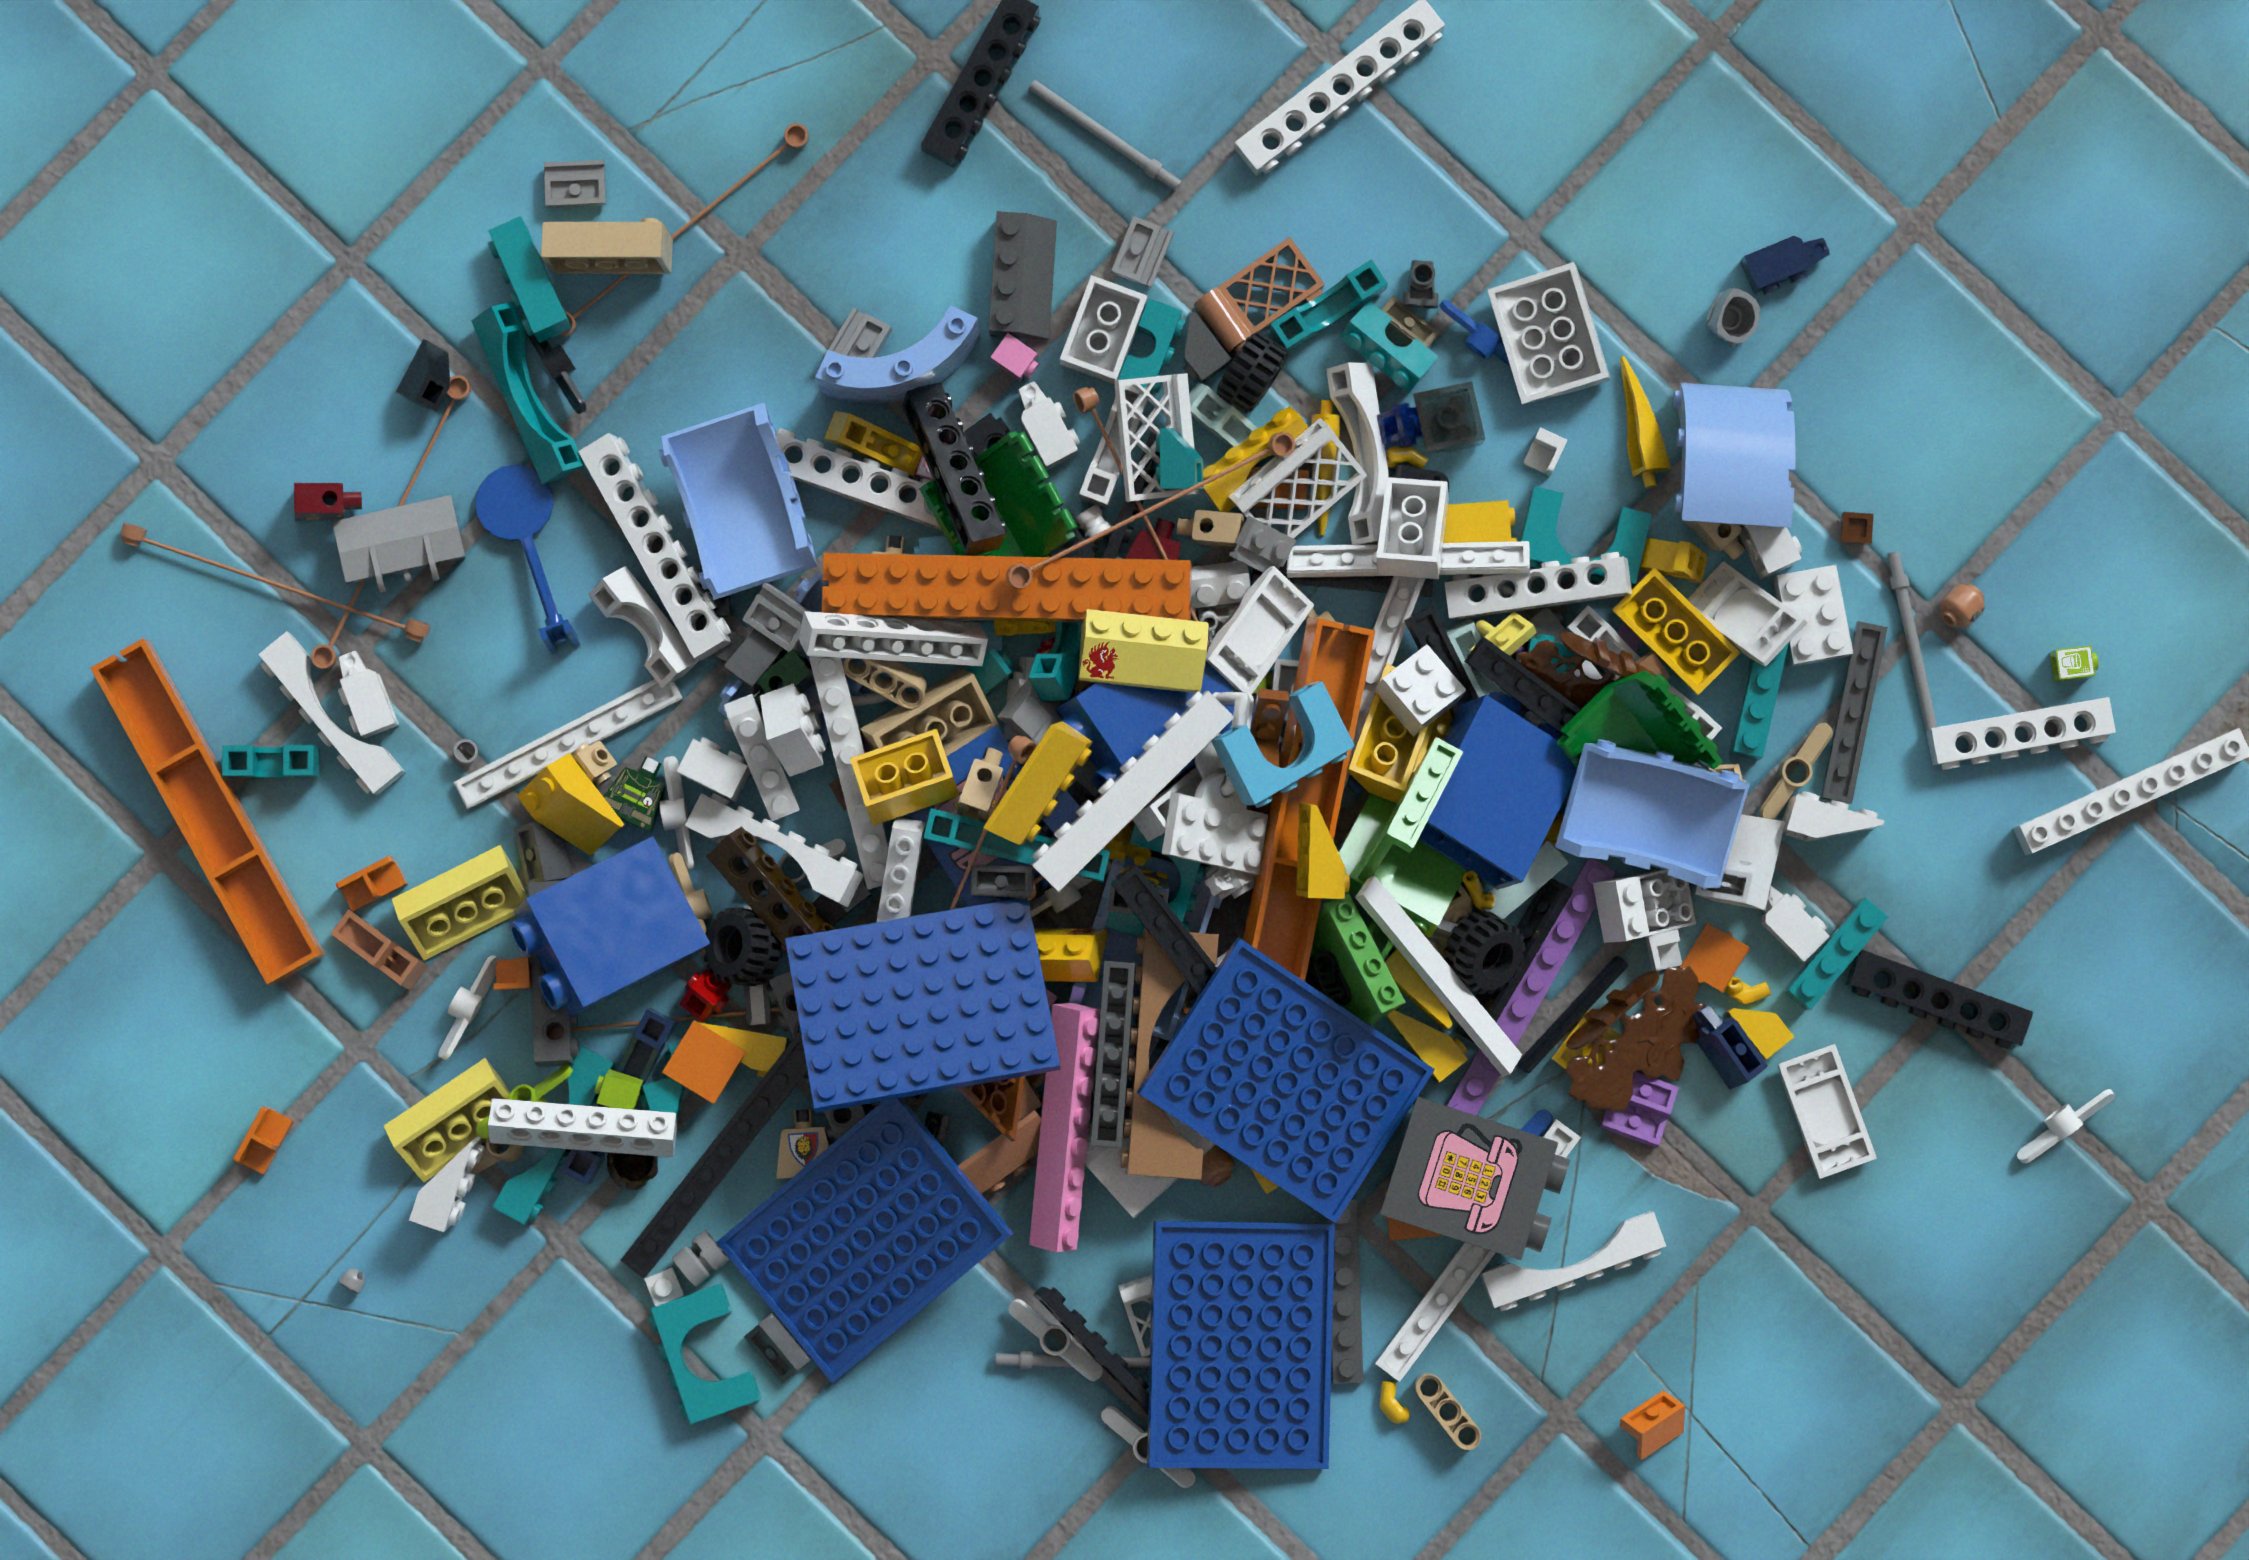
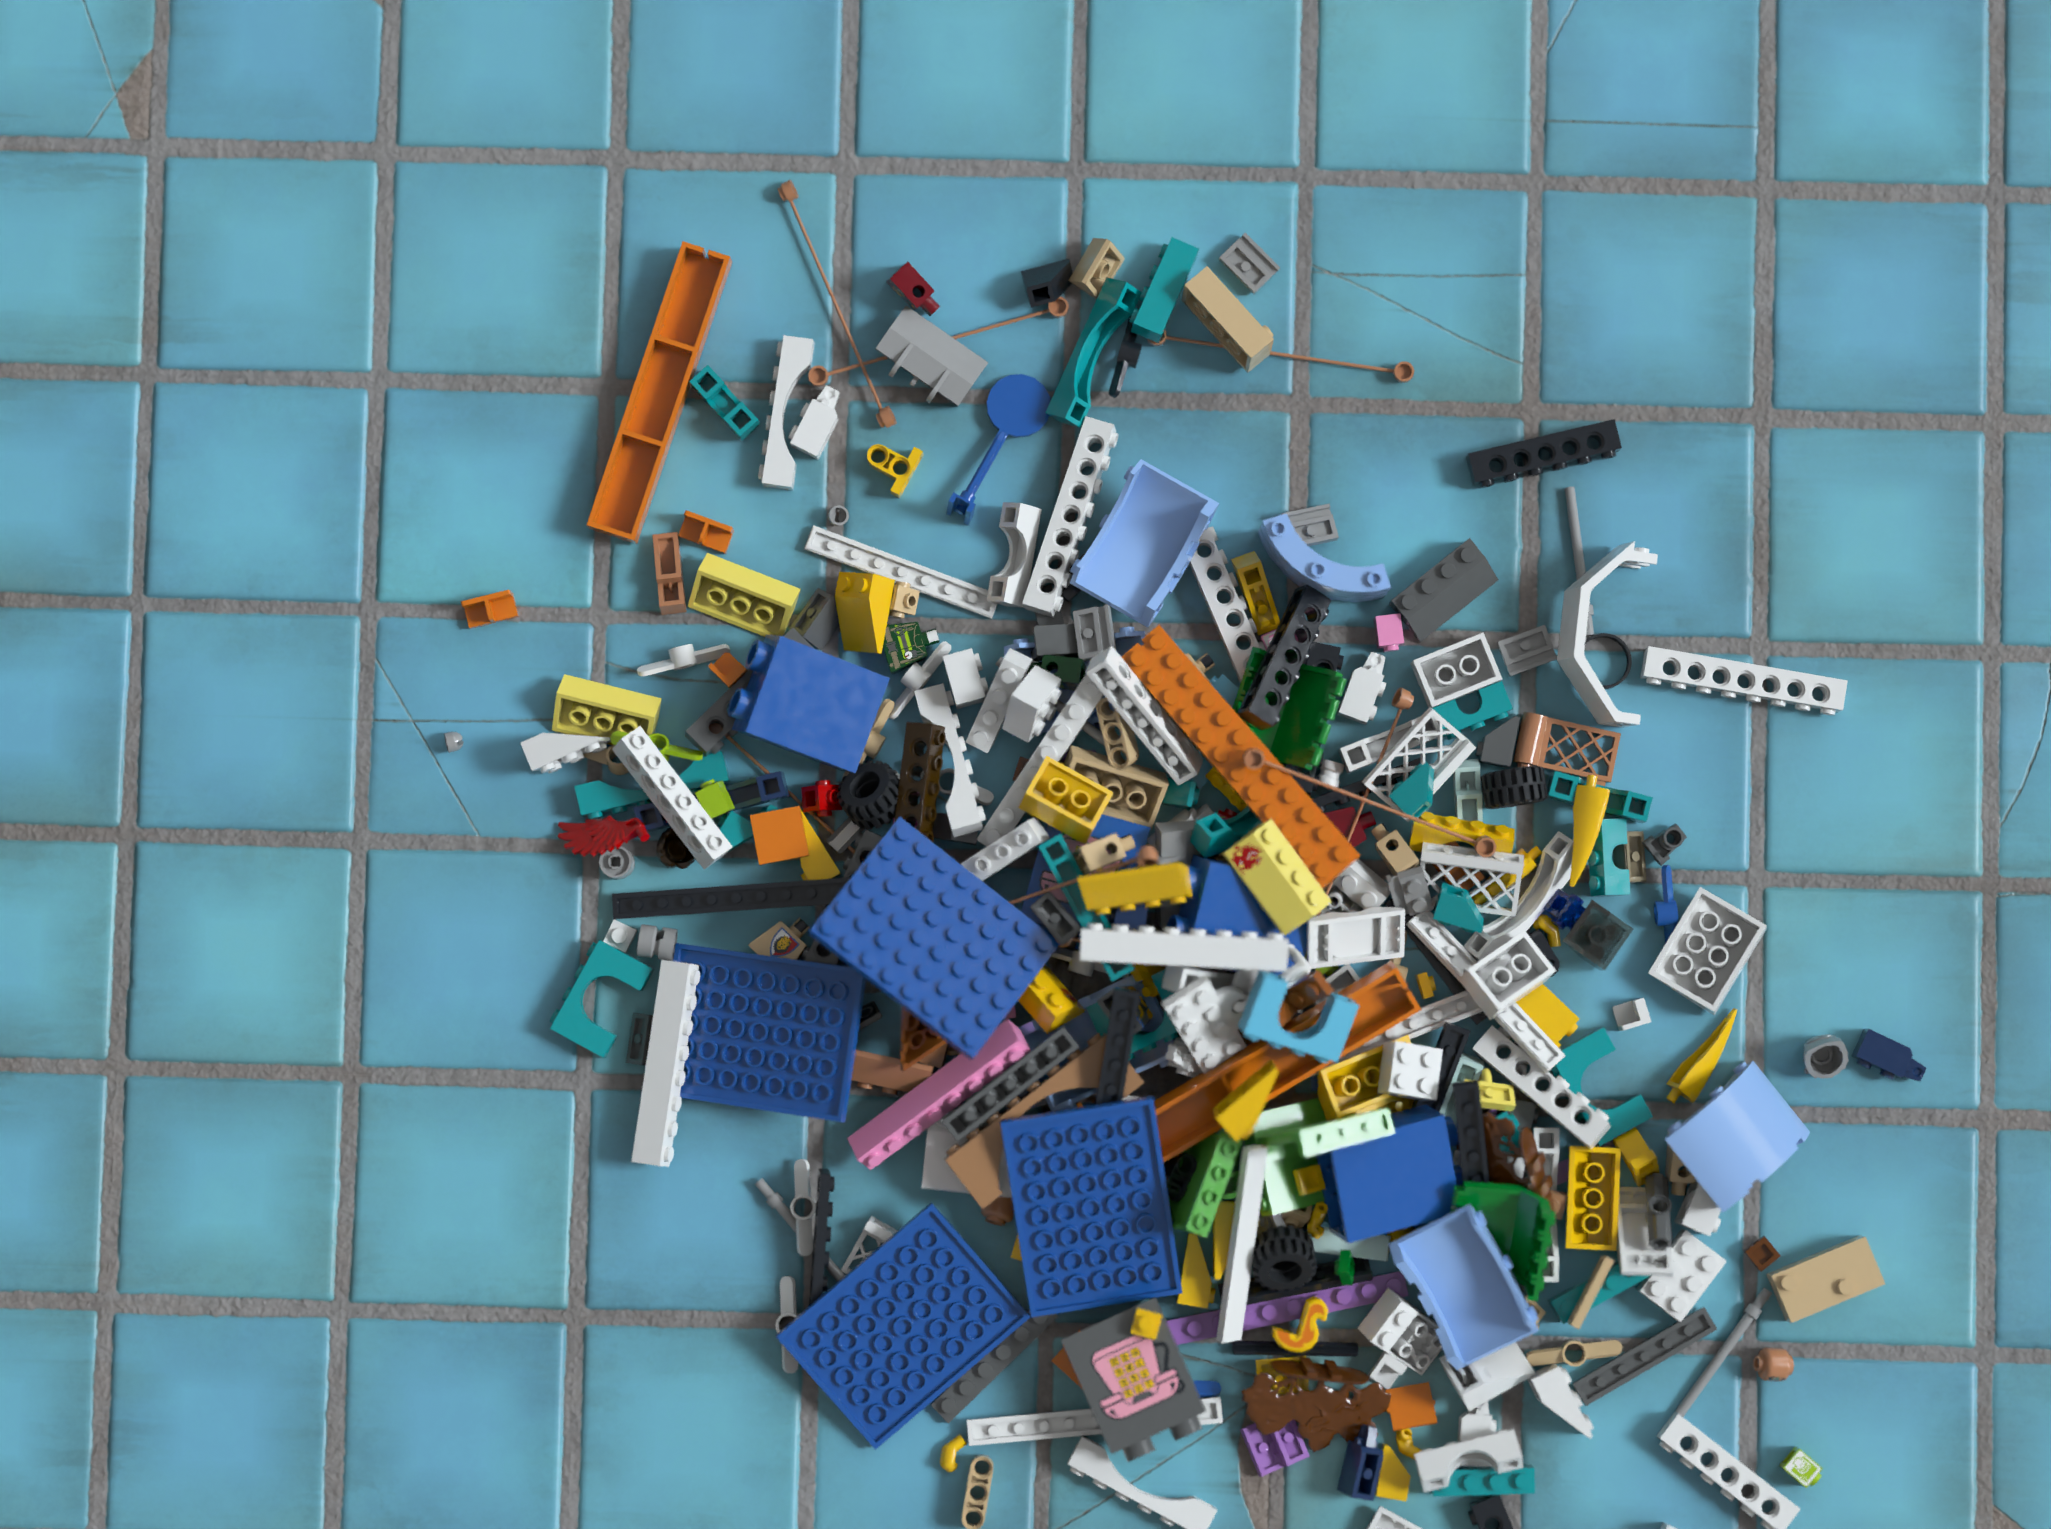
camera: 55 degrees right, 0 degrees up
(451, 318) = (1096, 264): none -> tan slope
(459, 656) = (891, 459): none -> yellow tile
(558, 1222) = (601, 834): none -> red animal
(595, 1230) = (618, 863): none -> light grey wheel
(816, 1347) = (665, 1063): none -> white brick
(1164, 196) = (1573, 634): none -> white panel
(1217, 164) = (1624, 647): none -> black tyre
(1314, 518) = (1457, 908): none -> teal slope
(1336, 329) = (1588, 815): none -> yellow piece
(1356, 608) = (1426, 985): none -> yellow plate
(1433, 1125) = (1146, 1323): none -> yellow plate
(1435, 866) = (1309, 1179): none -> yellow plate
(1541, 904) = (1345, 1267): none -> green plate
(1567, 989) = (1307, 1329): none -> yellow animal
(1748, 592) = (1658, 1222): none -> dark grey piece
(1756, 707) = (1590, 1292): none -> tan tile
(1822, 915) = (1497, 1450): none -> white arch
(1928, 492) = (1825, 1279): none -> tan brick

